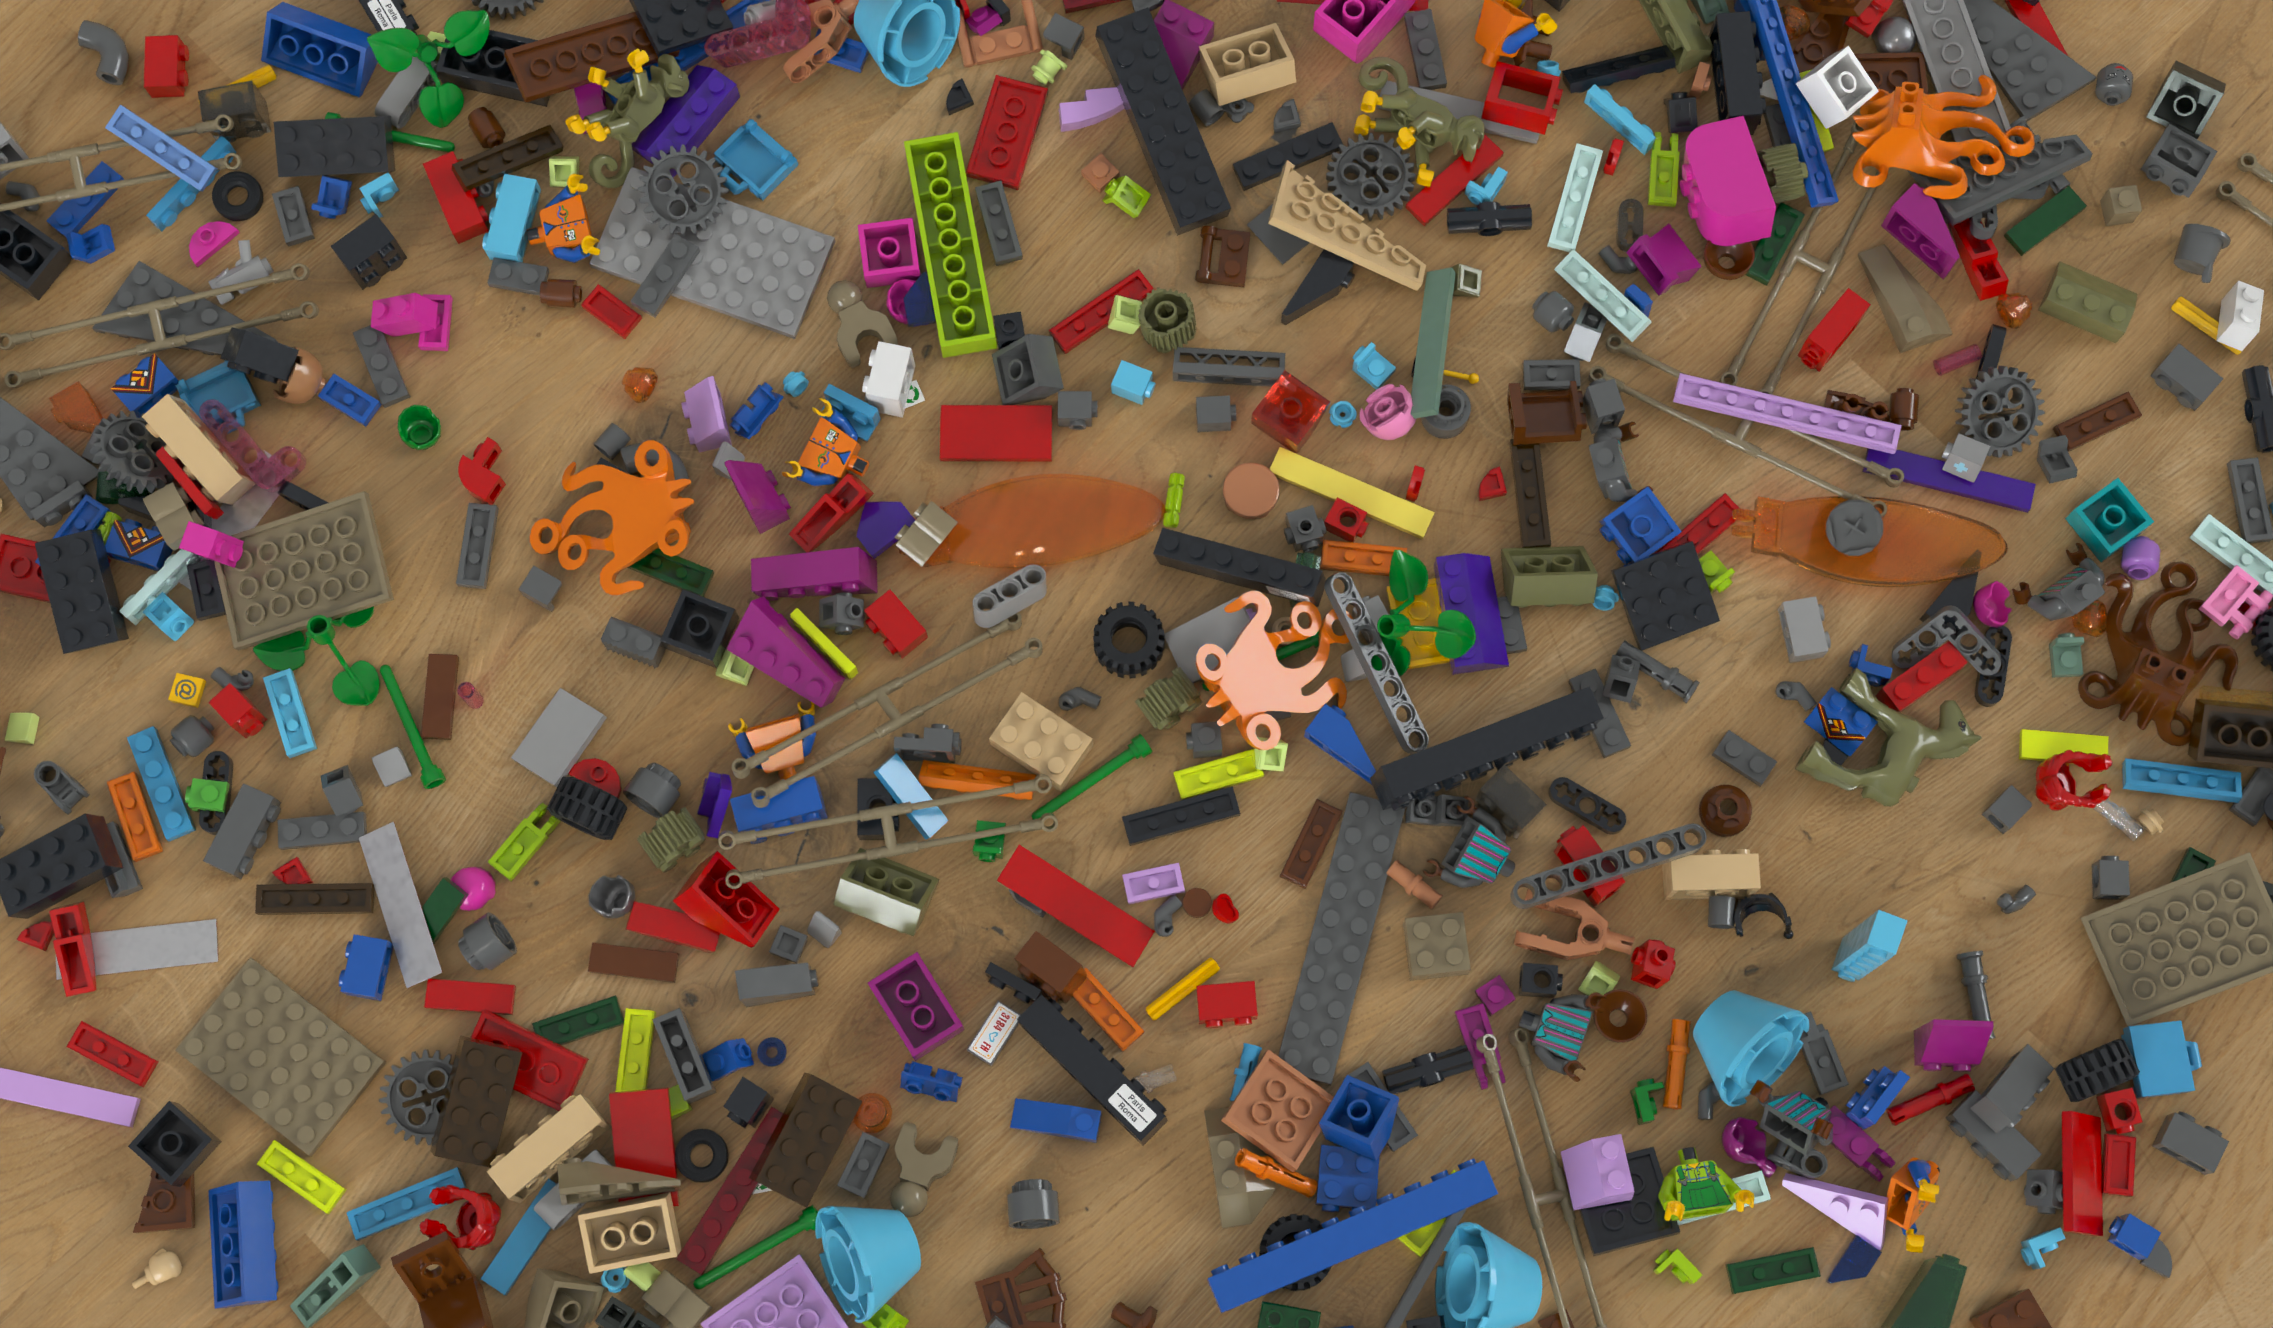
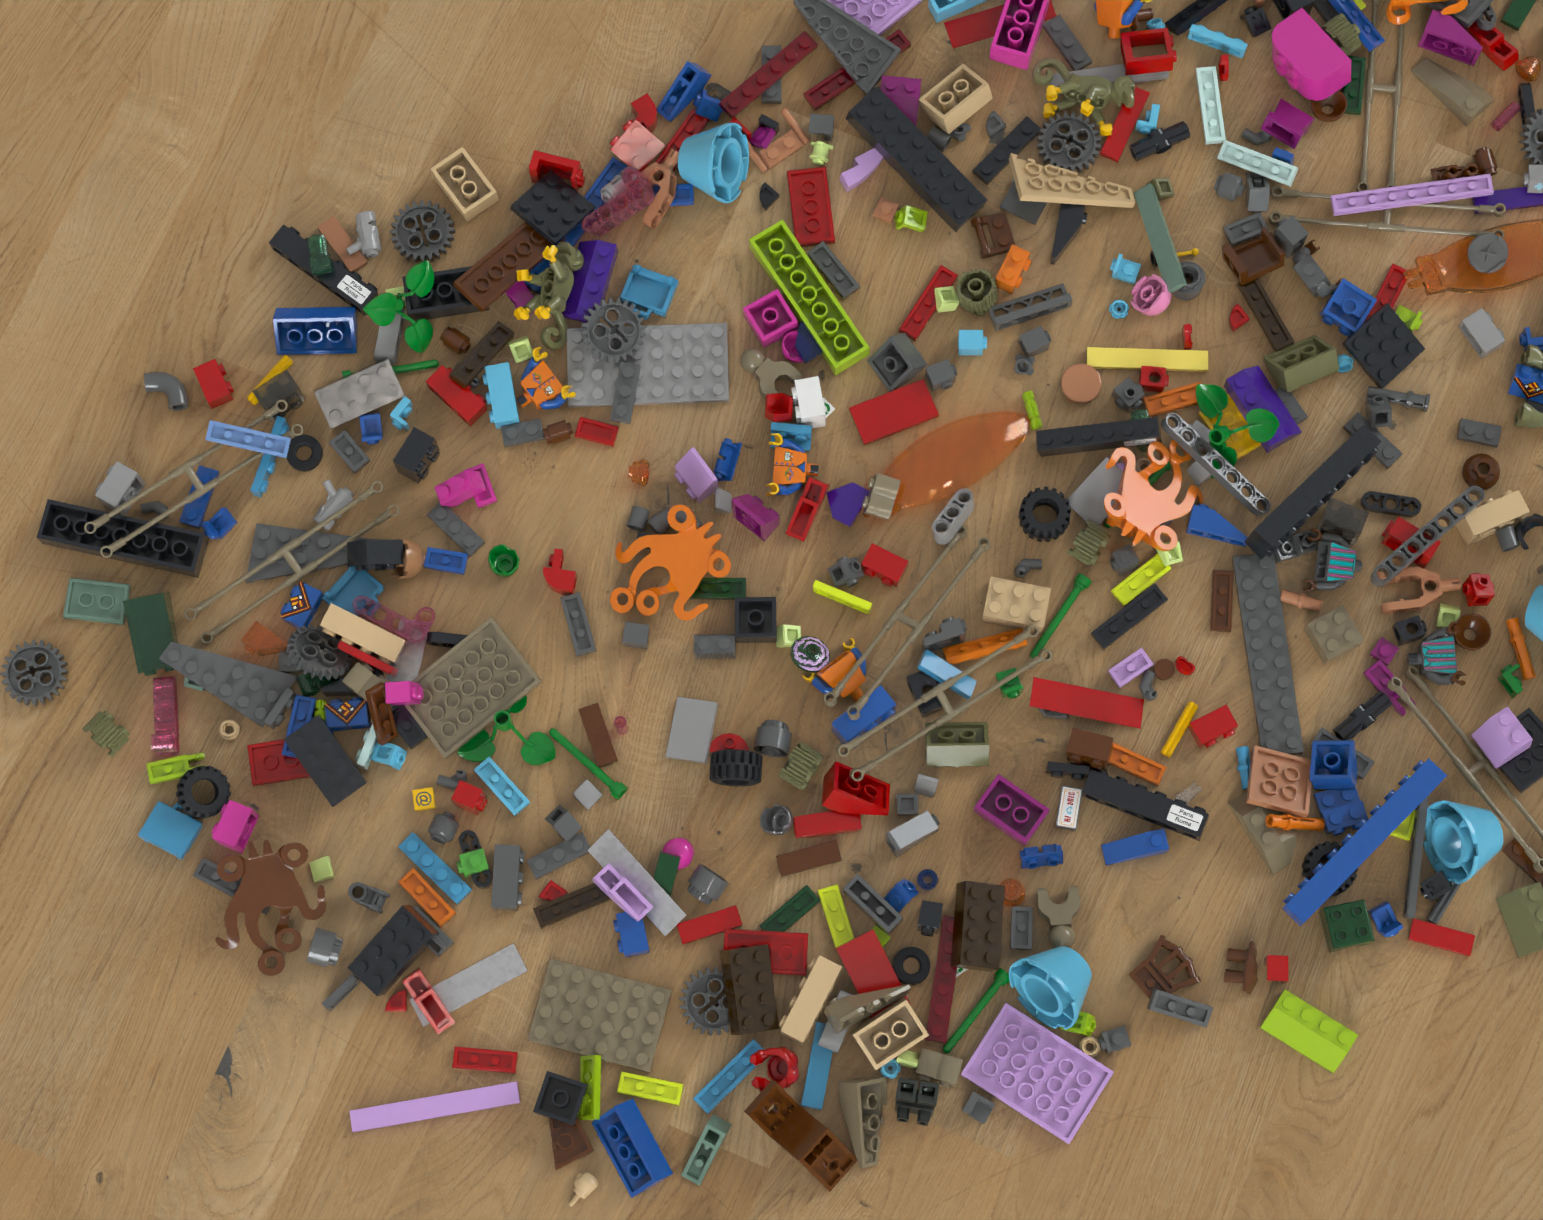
camera: 20 degrees left, 0 degrees up
(173, 561) = (381, 714): none -> reddish brown tile
(209, 240) = (298, 490): dark pink plate -> none
(230, 1132) = (591, 1074): none -> lime plate
(373, 910) = (622, 892): none -> lavender slope
(523, 843) = (699, 810): lime hinge -> none
(714, 801) = (818, 729): dark purple slope -> none
(743, 708) = (808, 660): none -> dish
(783, 654) = (820, 614): magenta wedge -> none
(795, 383) = (744, 431): medium azure plate -> none
(814, 574) = (815, 553): magenta wedge -> none
(848, 369) = (778, 407): none -> red panel
(1008, 328) = (874, 338): black brick -> none
(1033, 1205) = (1145, 908): dark grey piece -> none
(1181, 437) = (1020, 369): none -> dark grey plate
(1226, 309) = (1012, 269): none -> orange brick
(1290, 412) = (1085, 321): clear red slope -> none
(1623, 224) = (1257, 107): clear smoke beam -> none
(1664, 172) = (1261, 65): lime hinge -> none
(1795, 691) = (1494, 376): dark grey arm -> none
(1833, 330) = (1419, 128): red window -> none

